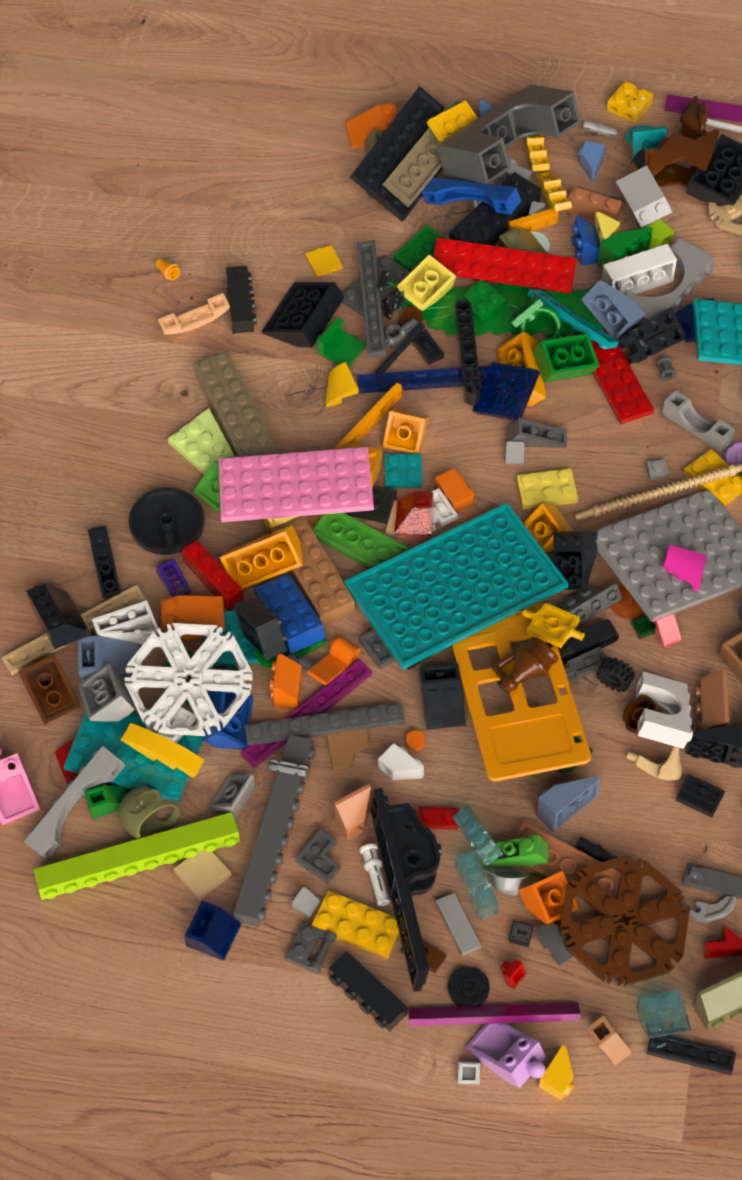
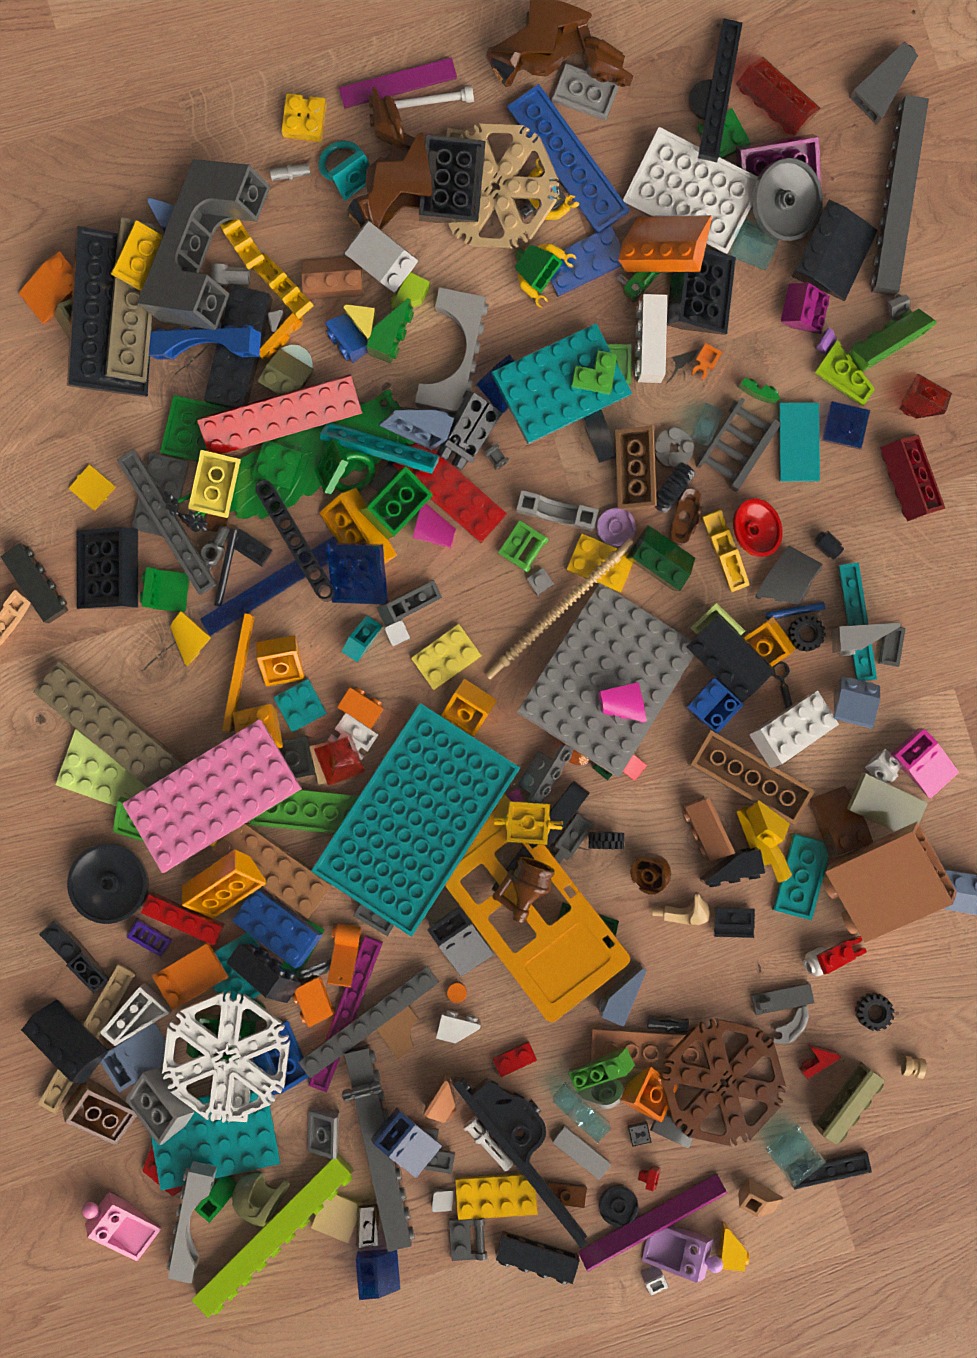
camera: 30 degrees left, 30 degrees up
(158, 747) = (240, 1133): yellow slope -> none
(226, 888) = (367, 1226): none -> plate
(304, 824) = (405, 1142): none -> slope
(477, 835) = (571, 1084): clear light blue arch -> none
(481, 443) = (361, 638): none -> teal slope
(575, 556) = (513, 736): black slope -> none
(586, 395) = (433, 528): none -> dark pink slope
(591, 157) = (299, 218): medium blue slope -> none
(641, 271) = (418, 354): white brick -> none
(653, 432) = (517, 543): none -> bright green plate
(674, 697) = (669, 837): white arch -> none

